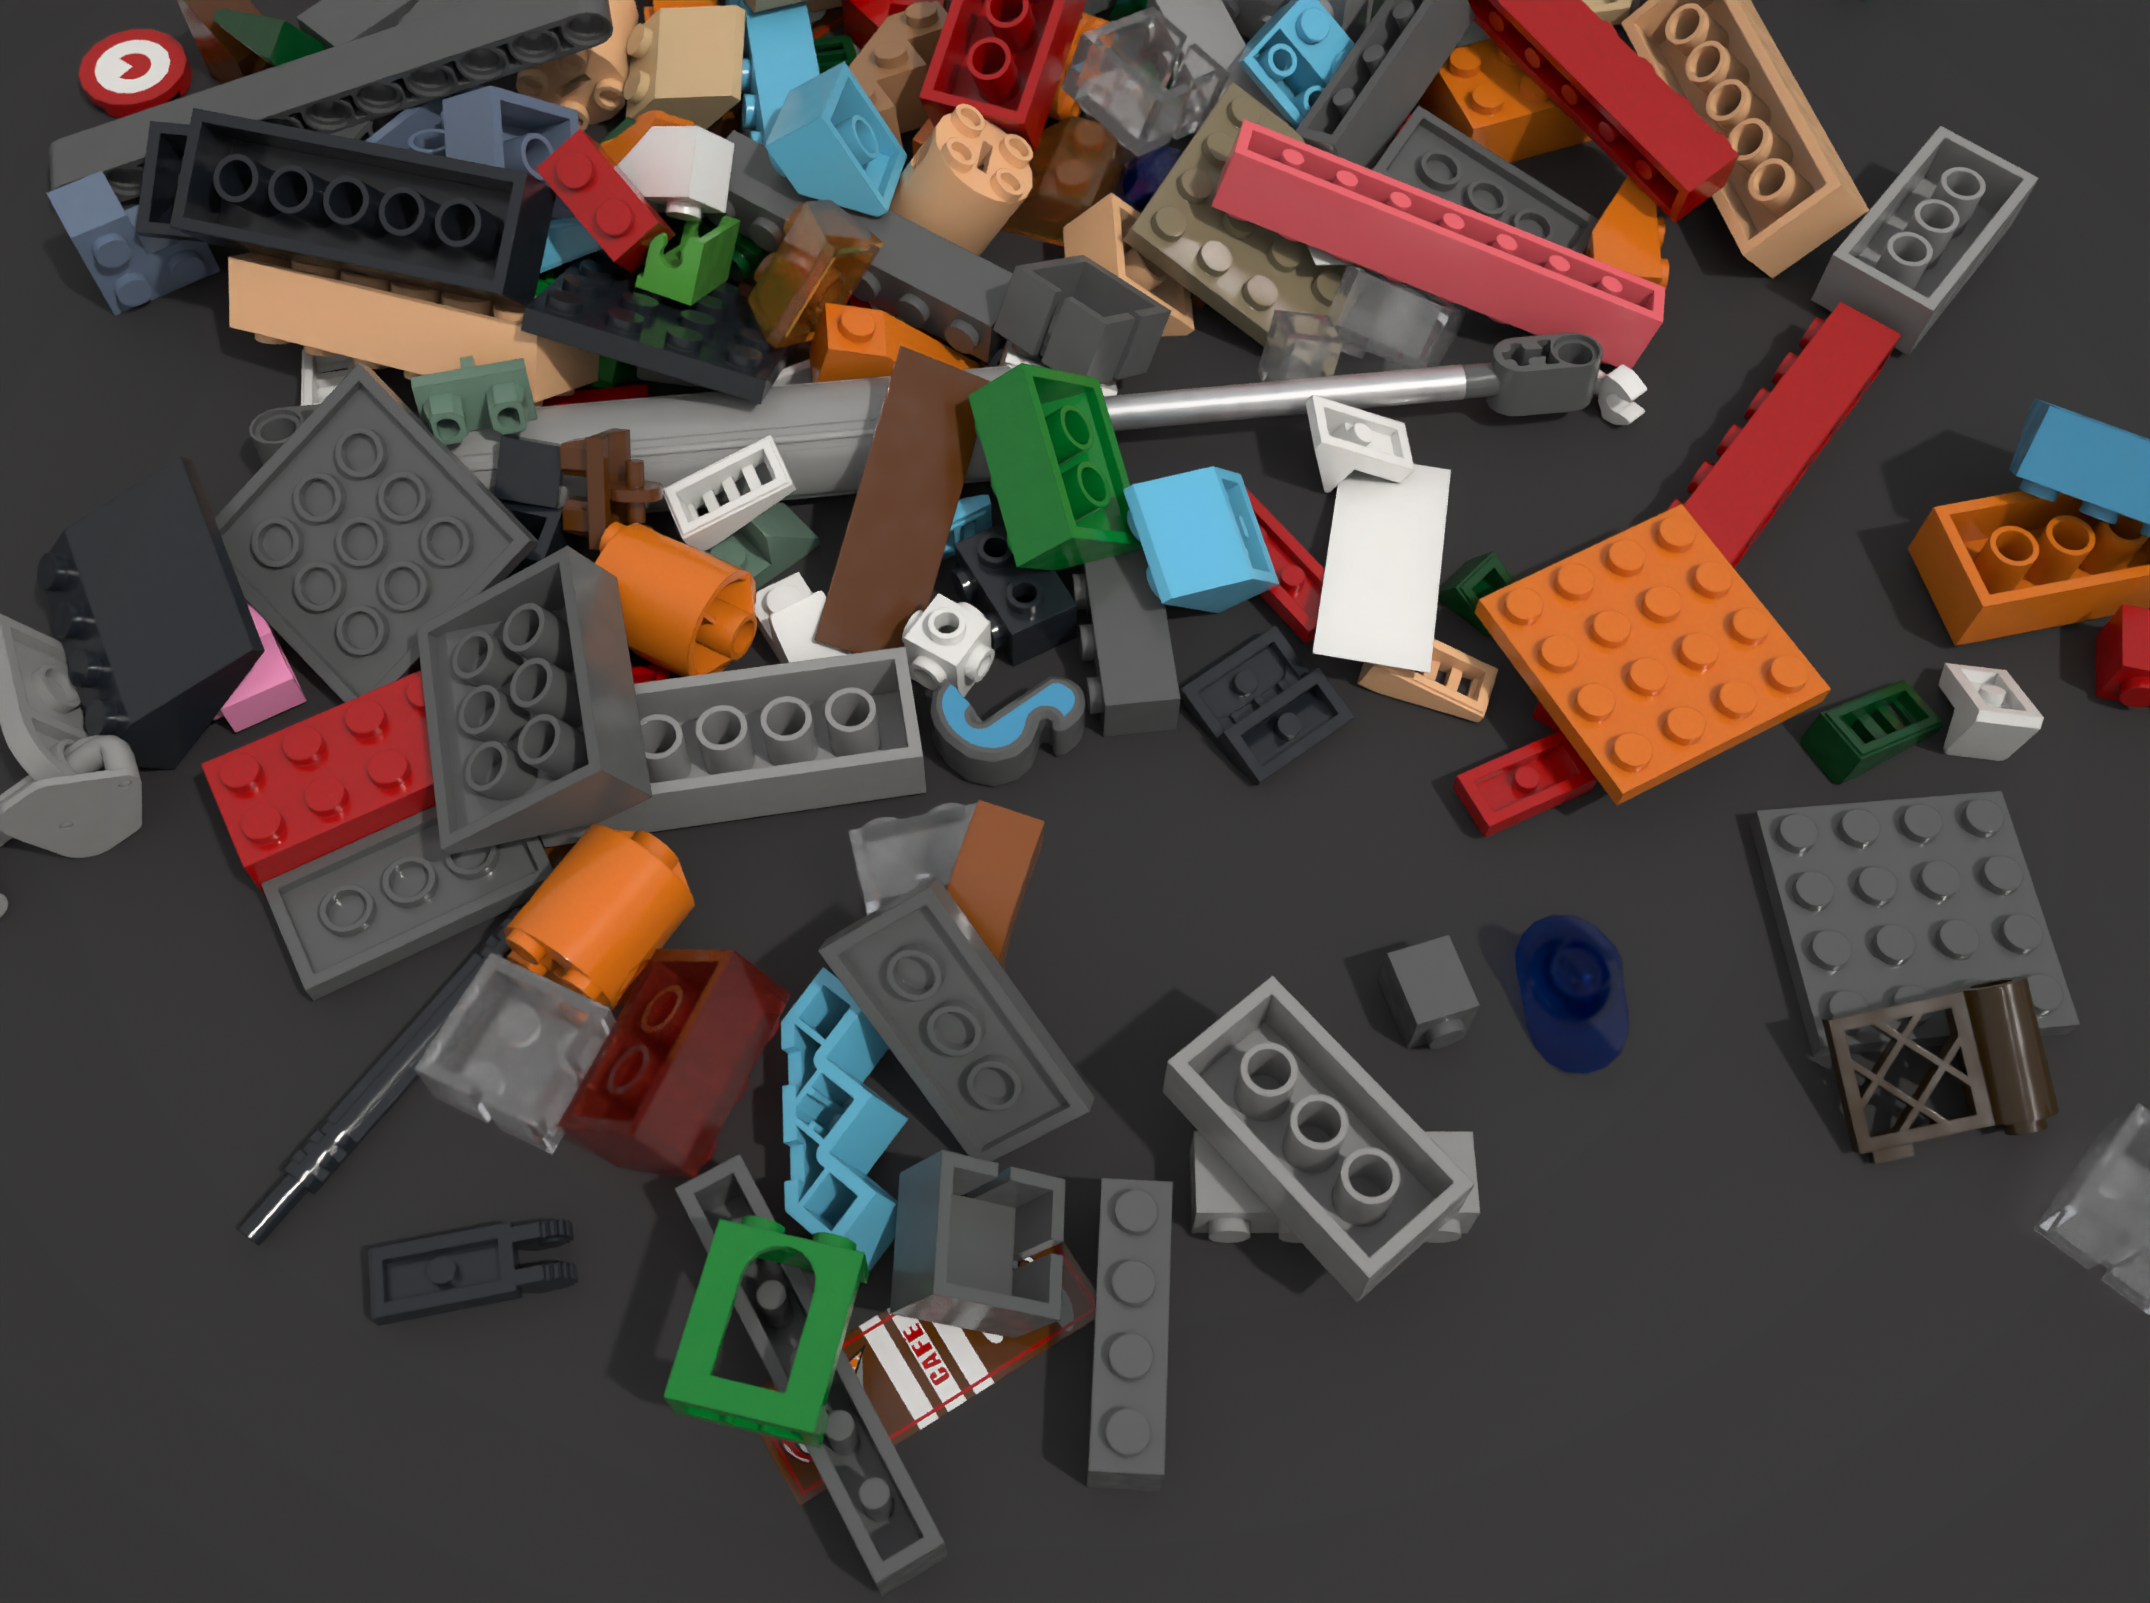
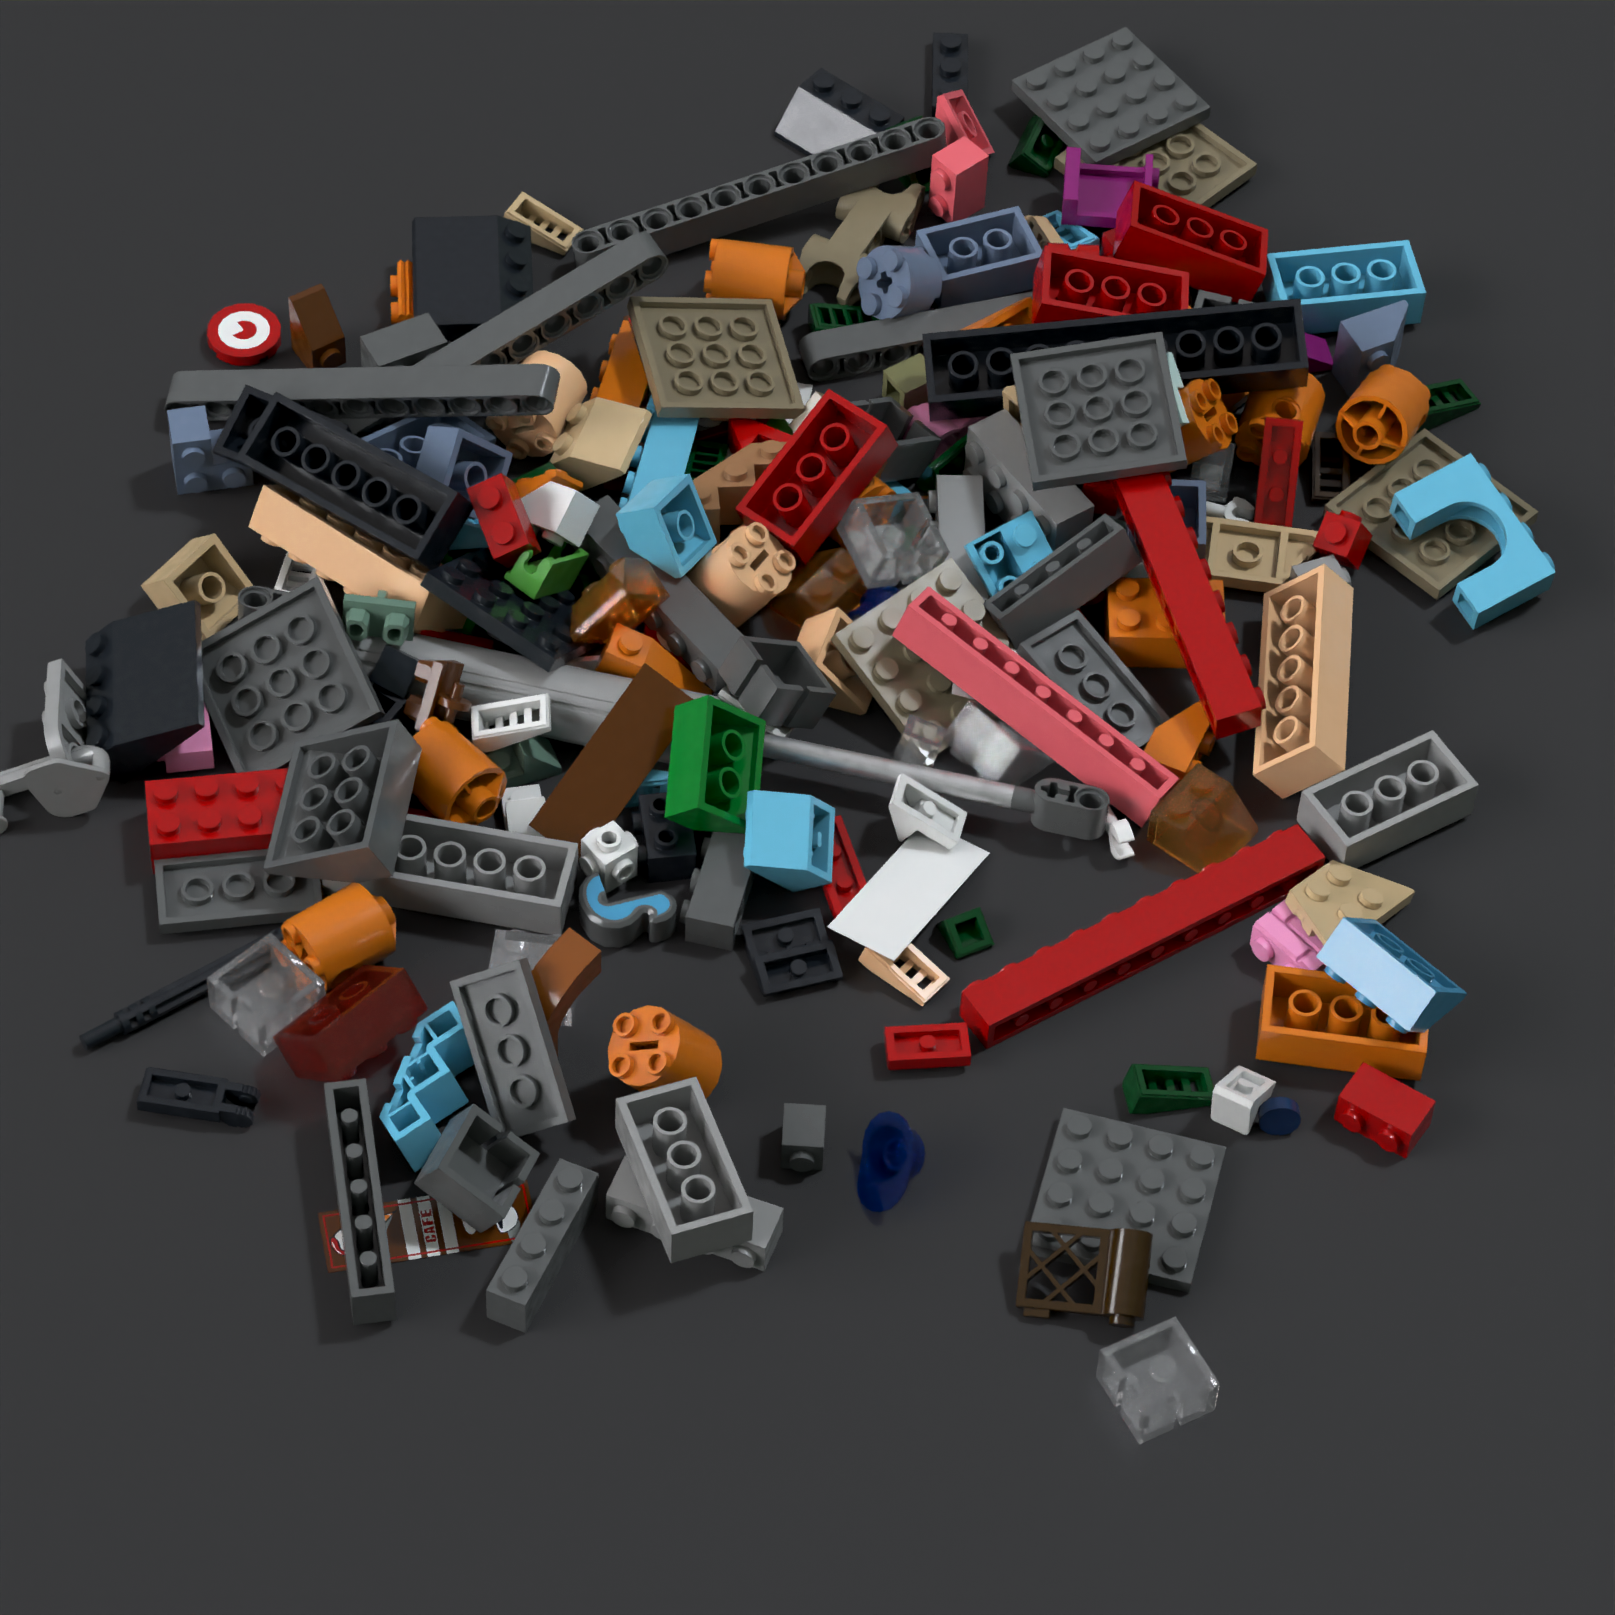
camera: 20 degrees right, 10 degrees down
(191, 416) = (204, 574): none -> tan slope
(268, 37) = (338, 348): dark green slope -> none
(800, 1411) = (324, 1193): green panel -> none
(1184, 947) = (659, 1048): none -> orange cylinder
(1650, 653) = (1036, 990): orange plate -> none
(1708, 340) = (1201, 820): none -> clear orange slope
(1921, 466) = (1284, 942): none -> bright pink brick
(1958, 394) = (1344, 892): none -> tan wing
(2058, 716) = (1279, 1116): none -> dark blue tile

